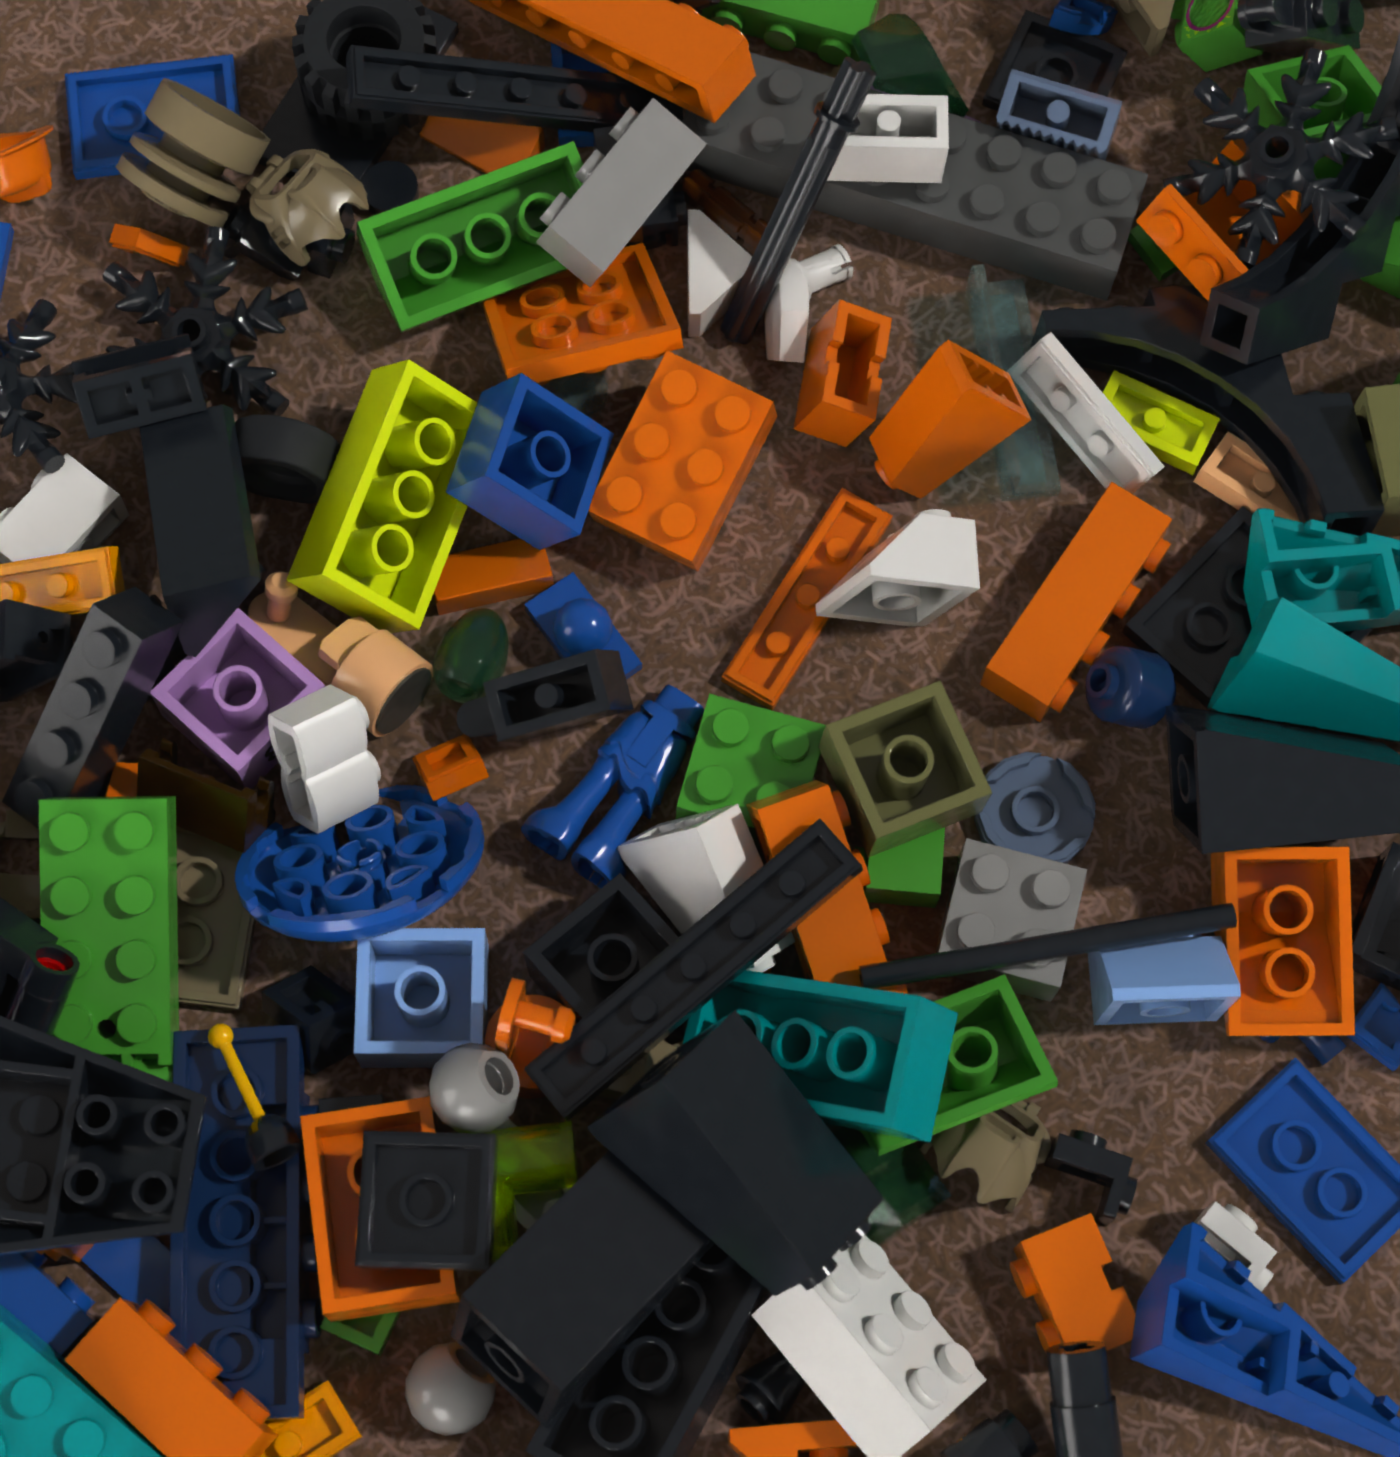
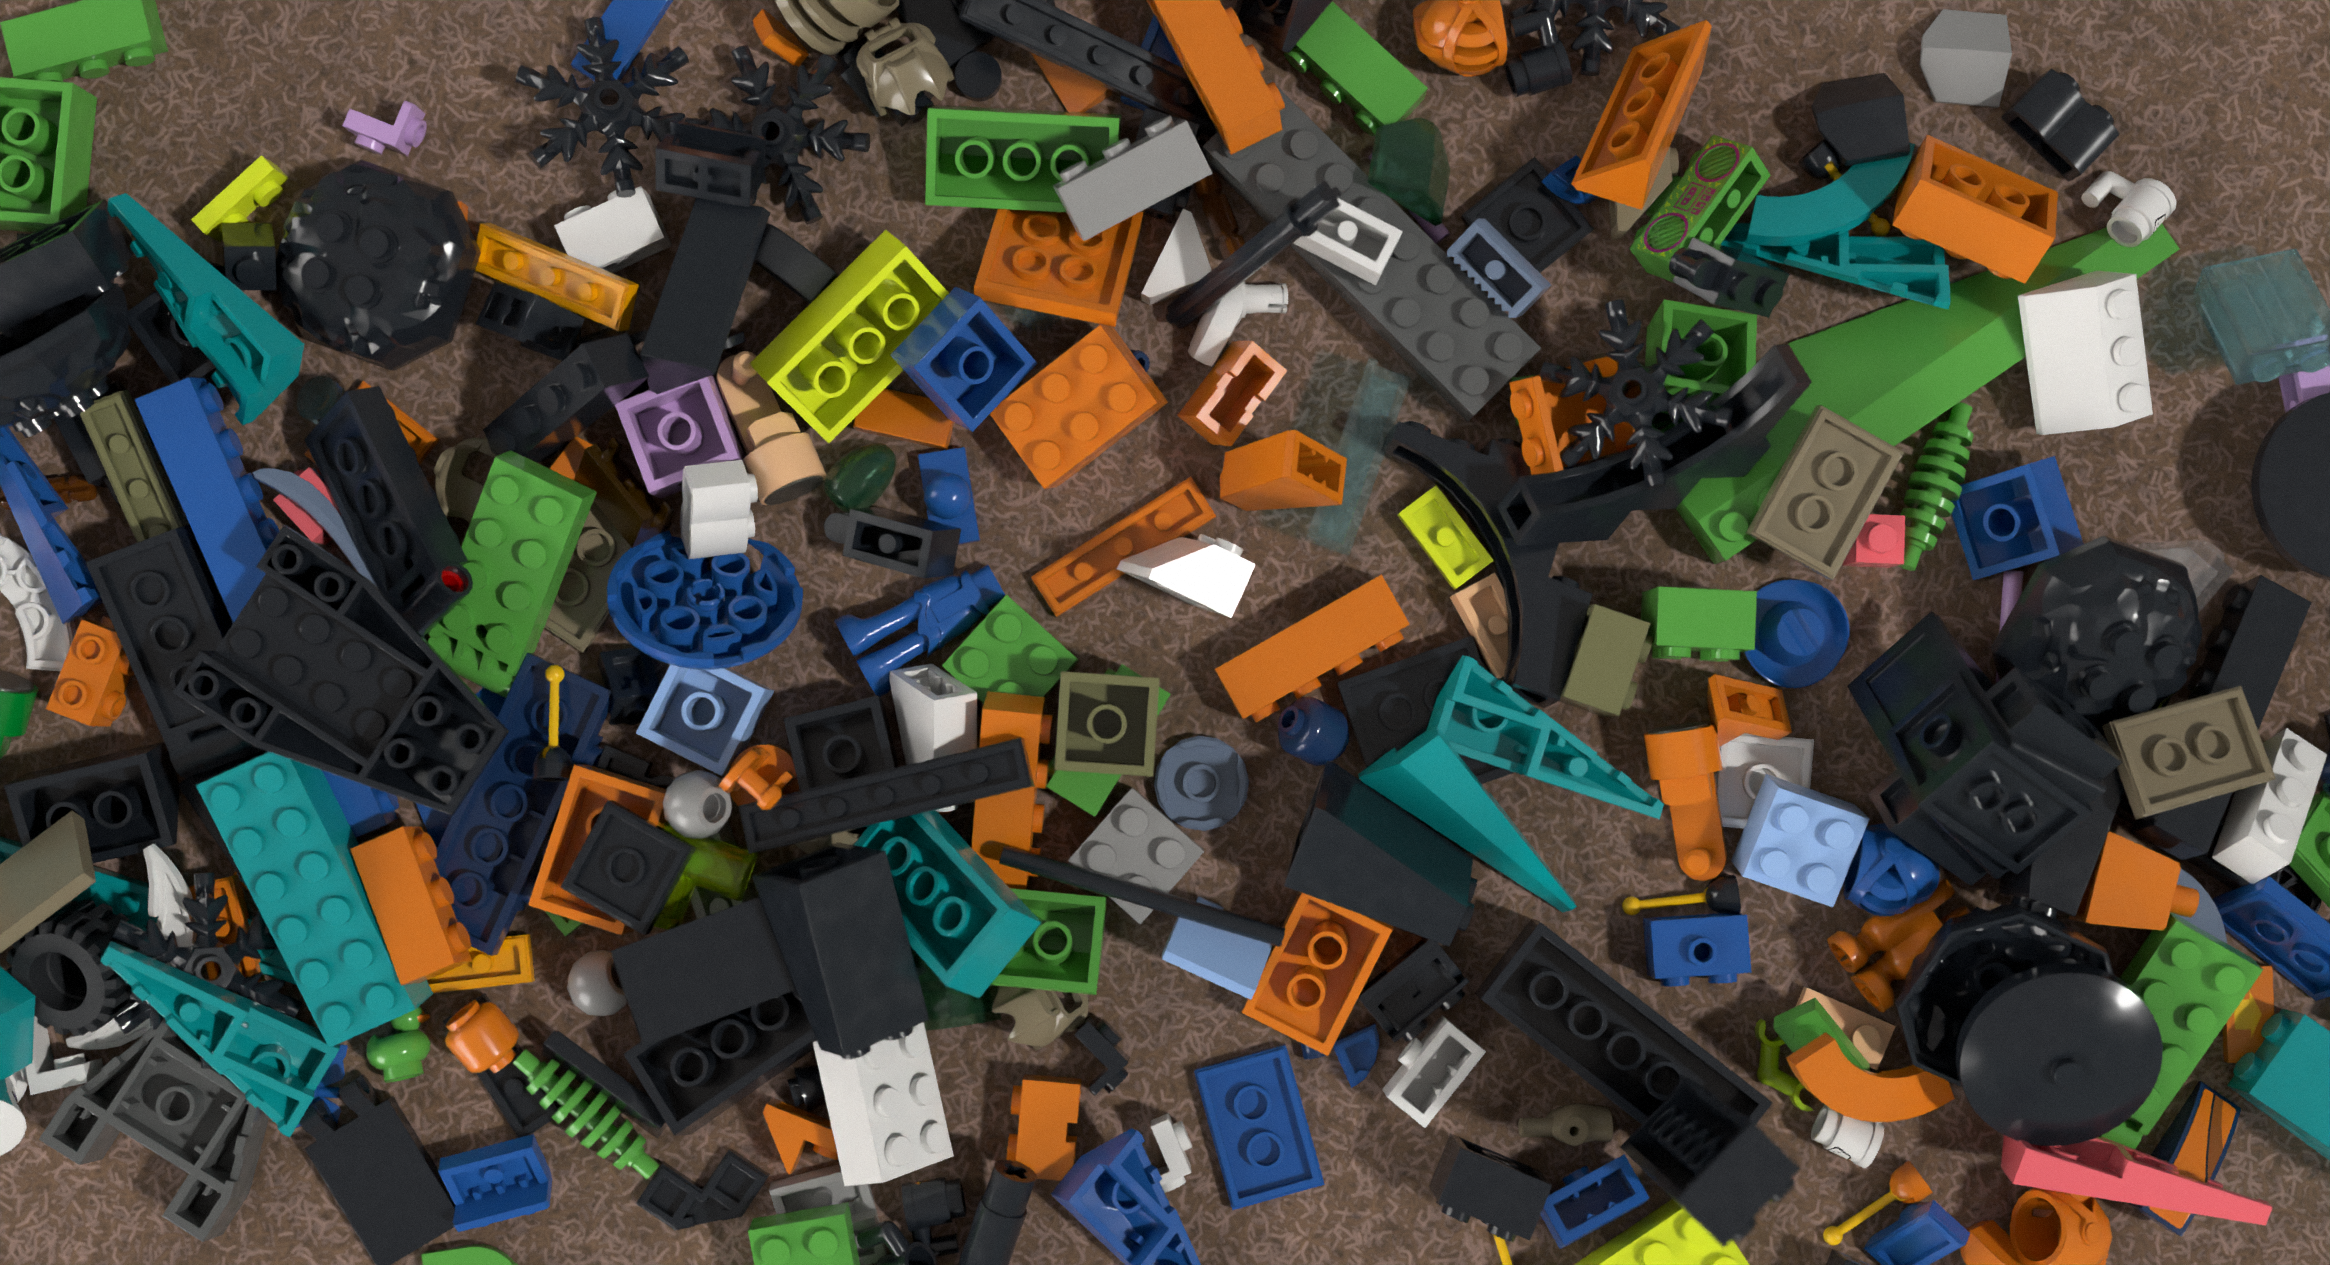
camera: 35 degrees right, 15 degrees up
(450, 767) = (805, 552): orange tile -> none
(1084, 416) = (1391, 514): white tile -> none

